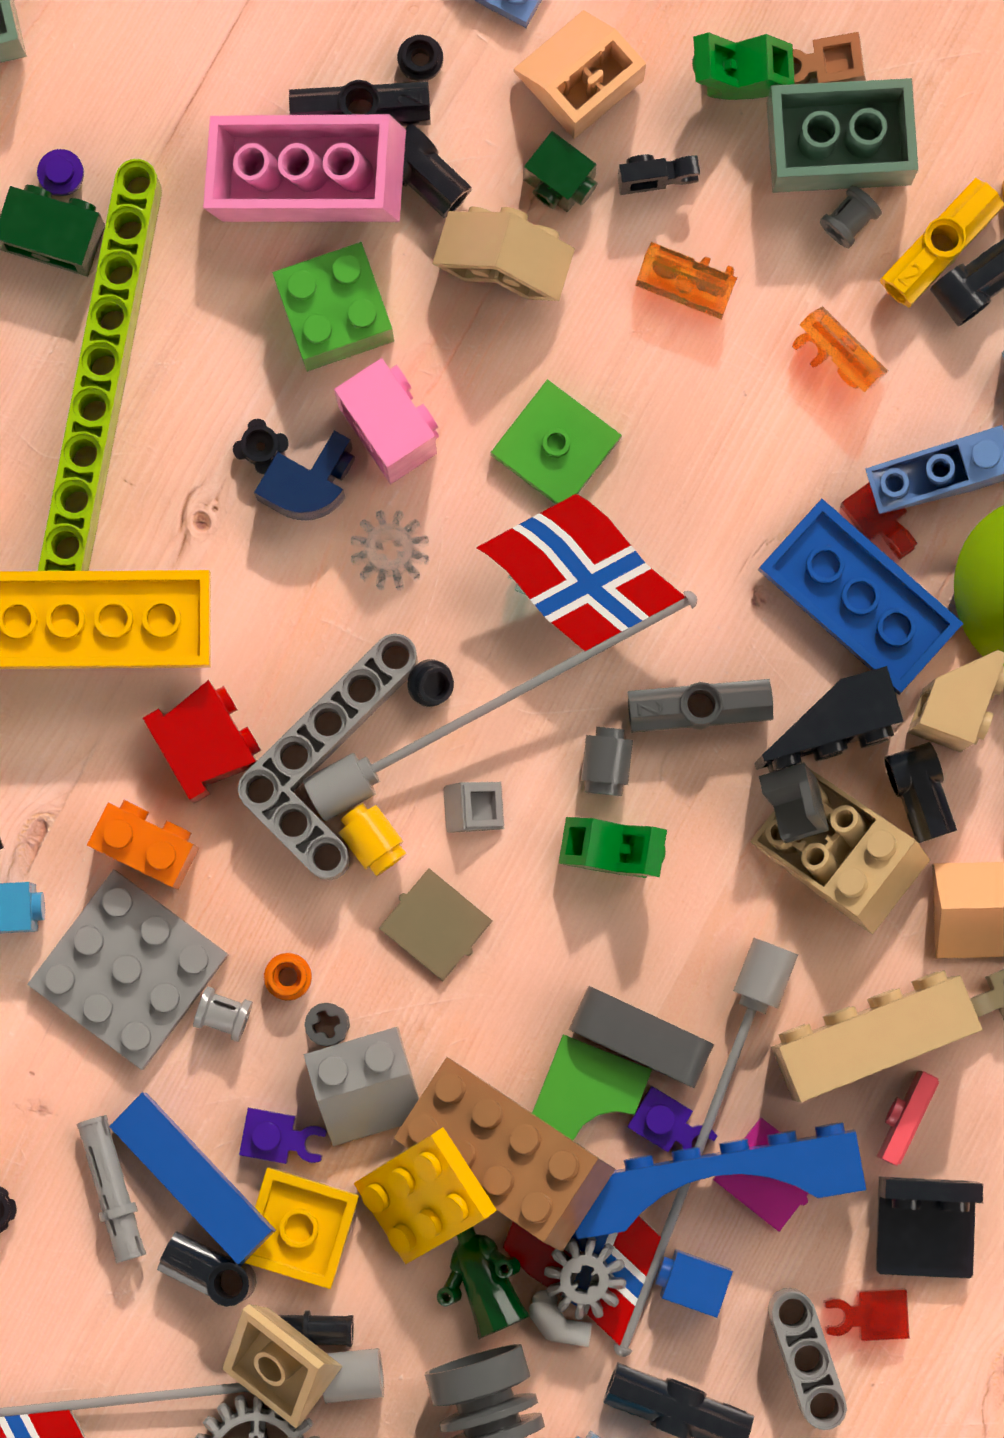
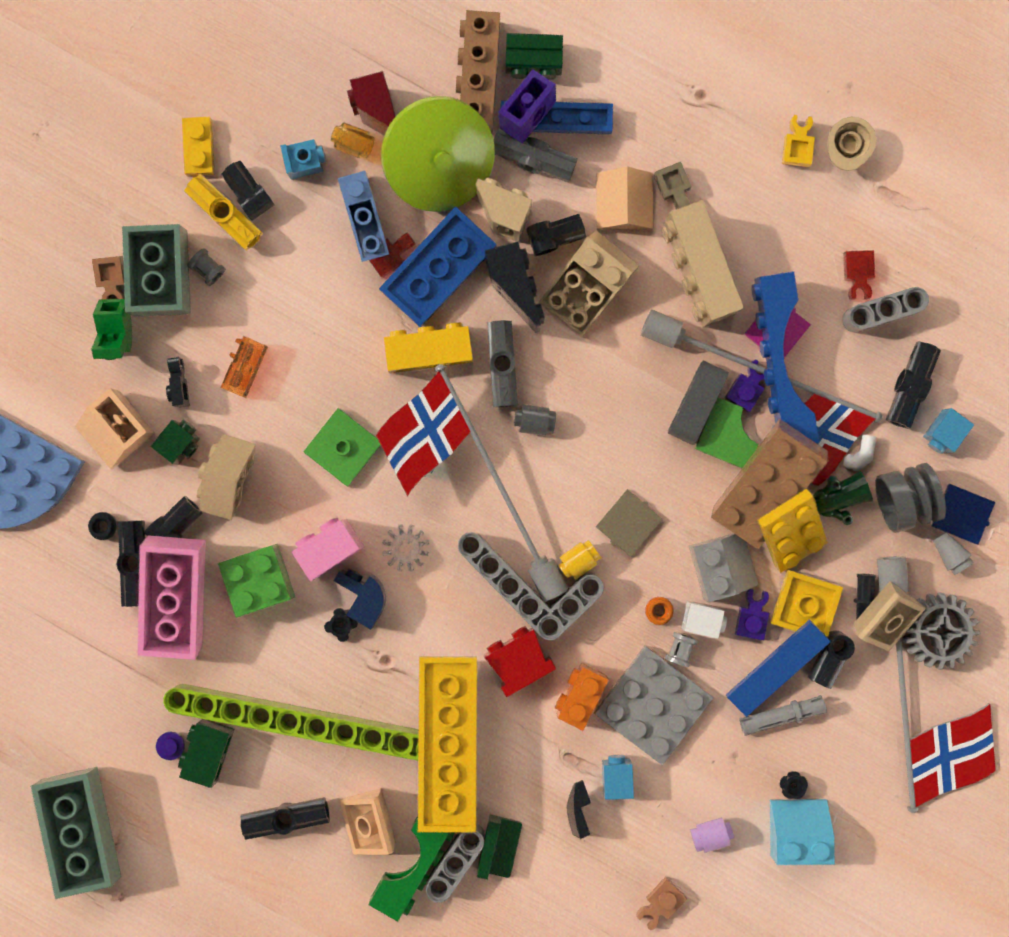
camera: 90 degrees left, 5 degrees up
(272, 1050) = (704, 620): none -> white brick
(313, 1018) = (696, 591): dark grey bush -> none
(430, 683) = (486, 524): black plate -> none
(473, 806) = (560, 499): light grey slope -> none
(596, 1289) = (843, 428): light grey gear -> none
(613, 847) = (587, 417): green brick -> none
(693, 1282) = (841, 374): blue brick -> none
(724, 582) = (428, 348): none -> yellow brick
(795, 801) = (562, 308): dark grey panel -> none
(832, 339) = (296, 266): clear orange plate -> none
(906, 1116) = (747, 248): coral plate -> none
(926, 1227) = (809, 238): black bracket -> none

